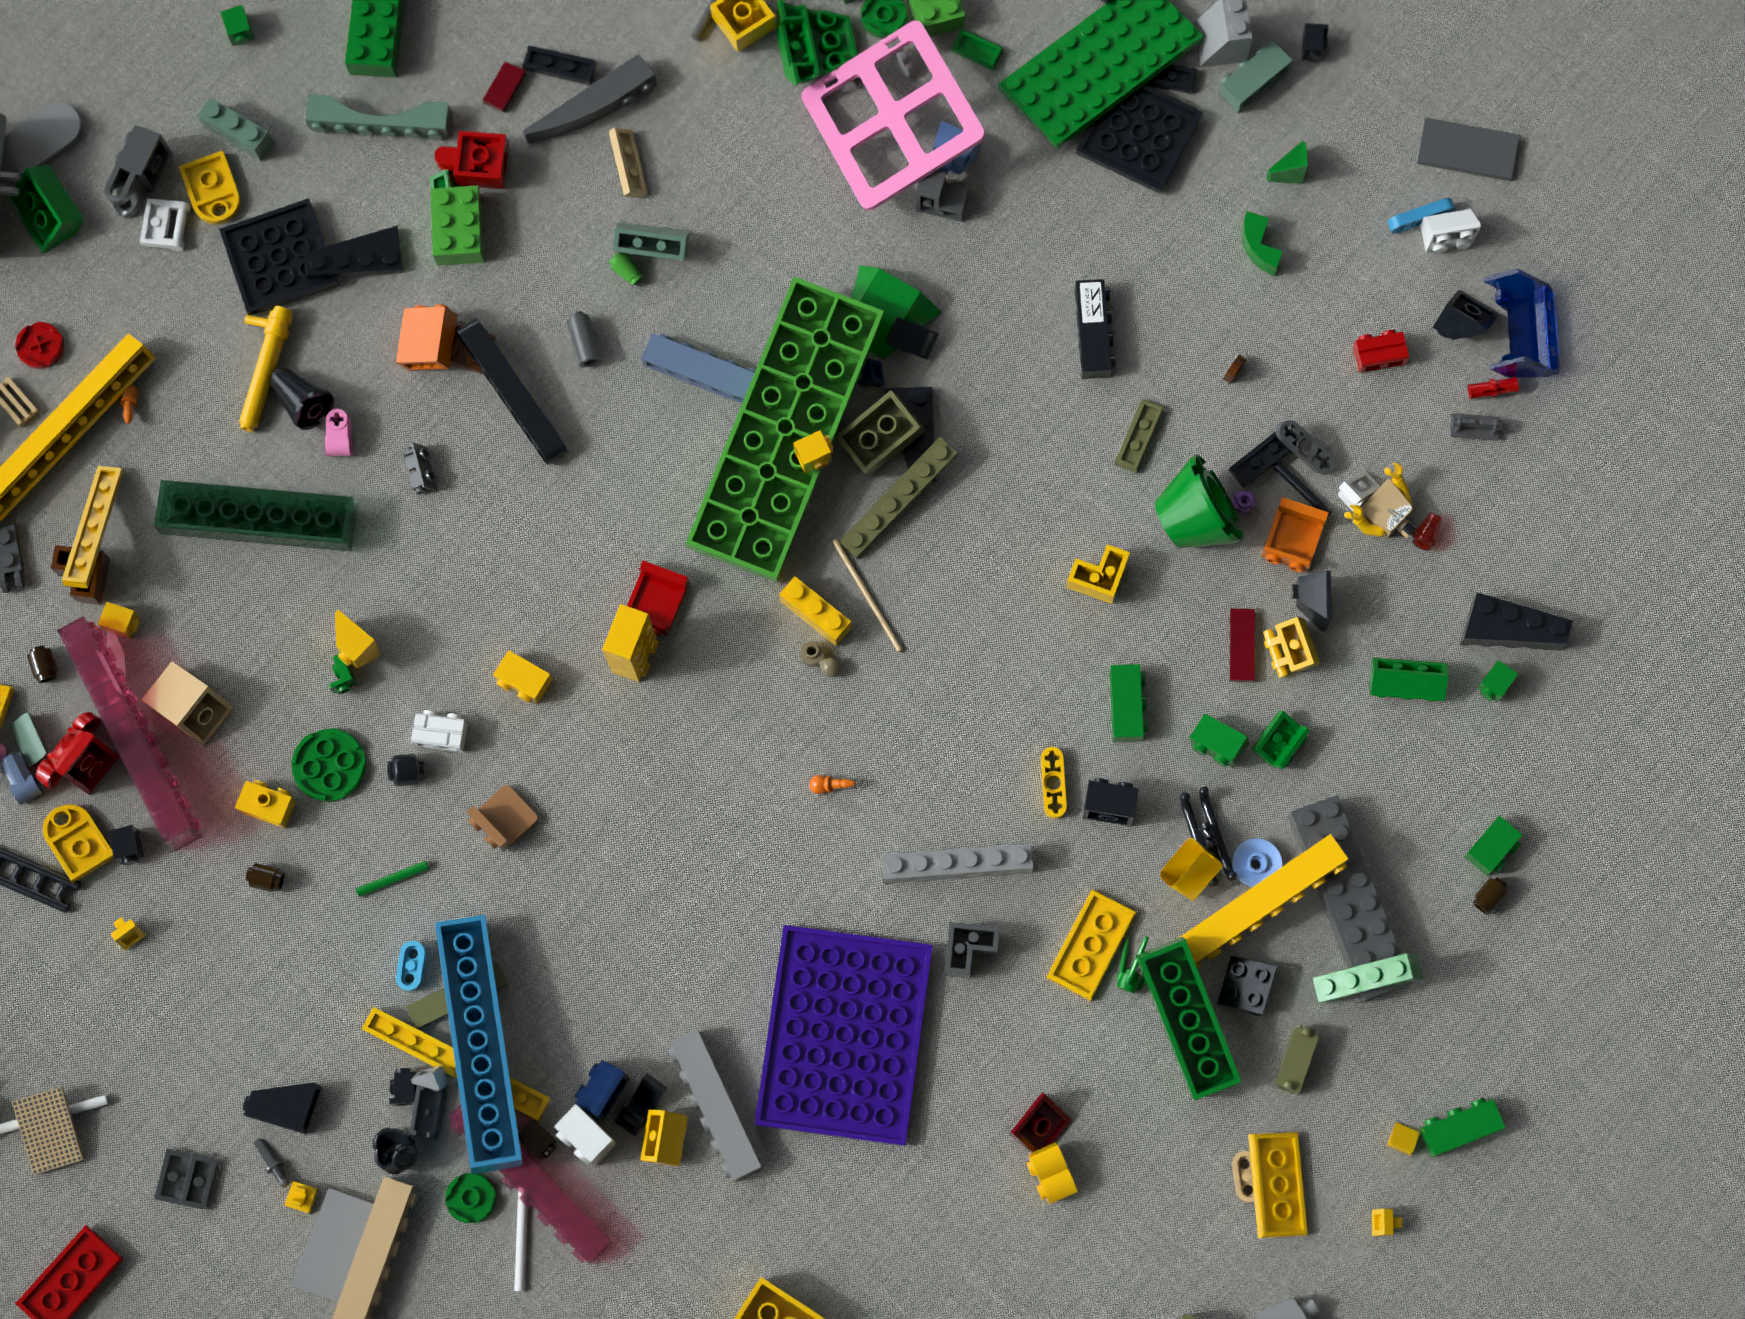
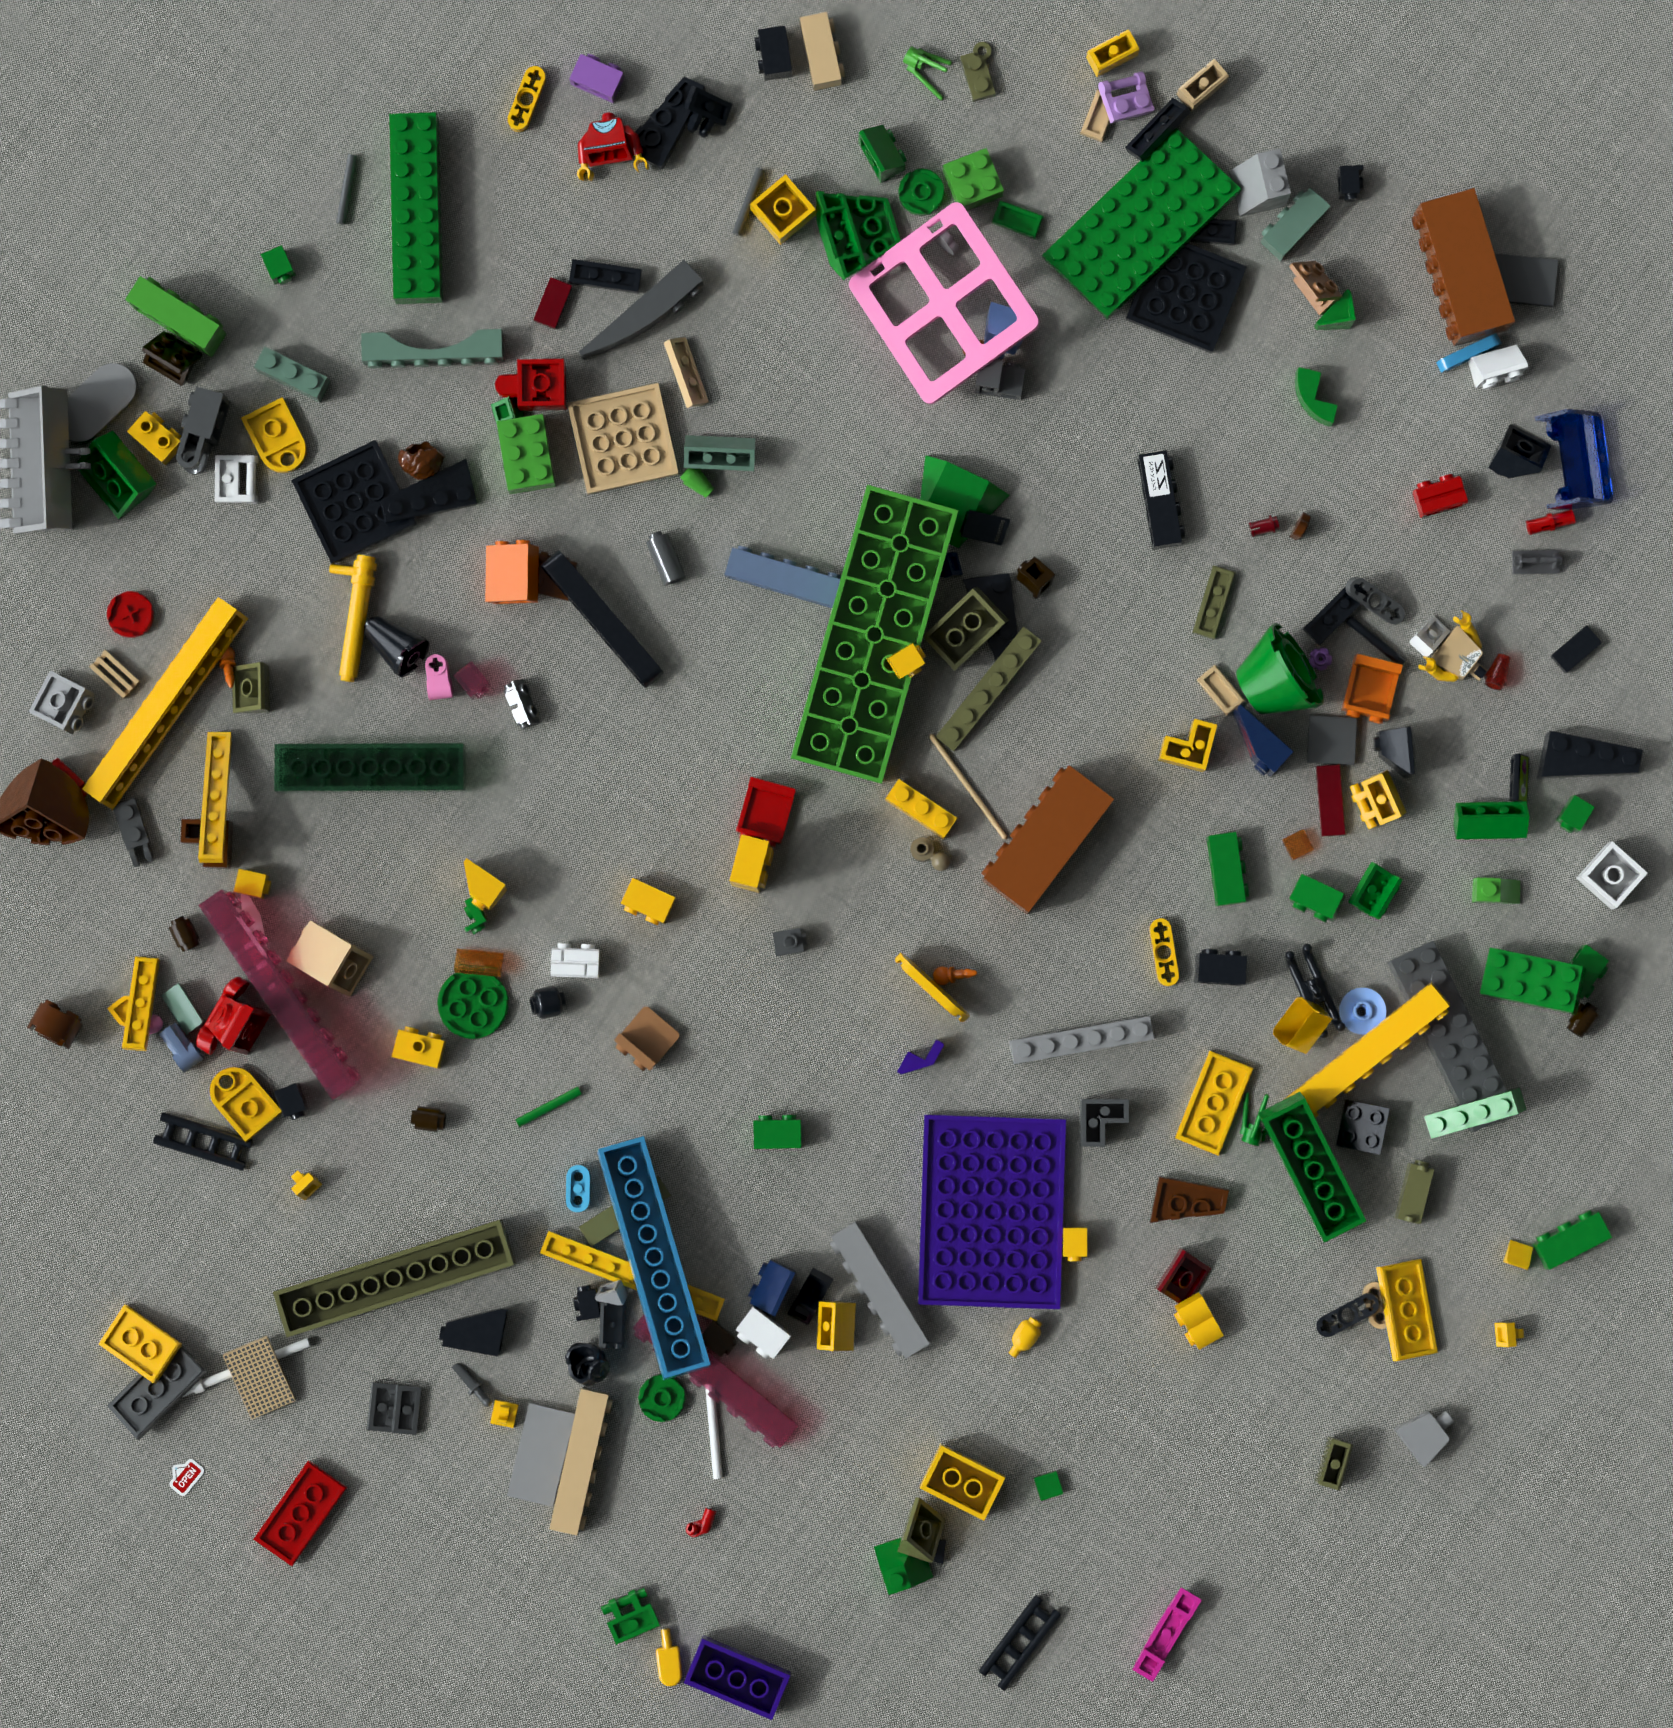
camera: 10 degrees left, 10 degrees up
(89, 175) = (155, 437): none -> yellow brick
(117, 102) = (170, 357): none -> dark brown bracket
(128, 61) = (174, 315): none -> bright green brick
(149, 427) = (251, 688): none -> olive slope
(204, 1038) = (394, 1278): none -> olive brick
(340, 723) = (478, 962): none -> clear orange tile
(350, 221) = (420, 460): none -> reddish brown hair
(372, 440) = (472, 681): none -> clear pink brick
(556, 220) = (622, 438): none -> tan plate
(626, 928) = (777, 1133): none -> green brick
(663, 733) = (789, 942): none -> dark grey brick
(779, 870) = (912, 1062): none -> dark purple slope
(805, 792) = (931, 987): none -> yellow tile
(865, 1170) = (1025, 1336): none -> yellow plant
(928, 1076) = (1074, 1243): none -> yellow brick
(941, 652) = (1046, 838): none -> dark orange brick
(958, 392) = (1042, 576): none -> dark brown brick
(1050, 1042) = (1185, 1199): none -> reddish brown wing
(1138, 523) = (1220, 690): none -> tan tile
(1177, 580) = (1263, 746): none -> dark blue slope
(1199, 365) = (1266, 525): none -> dark red pin
(1203, 686) = (1297, 844): none -> clear orange tile
(1234, 1182) = (1330, 1317): none -> black beam
(1248, 584) = (1331, 740): none -> dark grey tile
(1269, 133) = (1315, 285): none -> medium nougat bracket
(1408, 752) = (1496, 890): none -> bright green slope
(1421, 129) = (1463, 267): none -> dark orange brick
(1440, 847) = (1533, 981): none -> green brick
(1441, 639) = (1519, 778): none -> slope
(1510, 517) = (1576, 649): none -> black tile
(1531, 747) = (1611, 875): none -> white brick

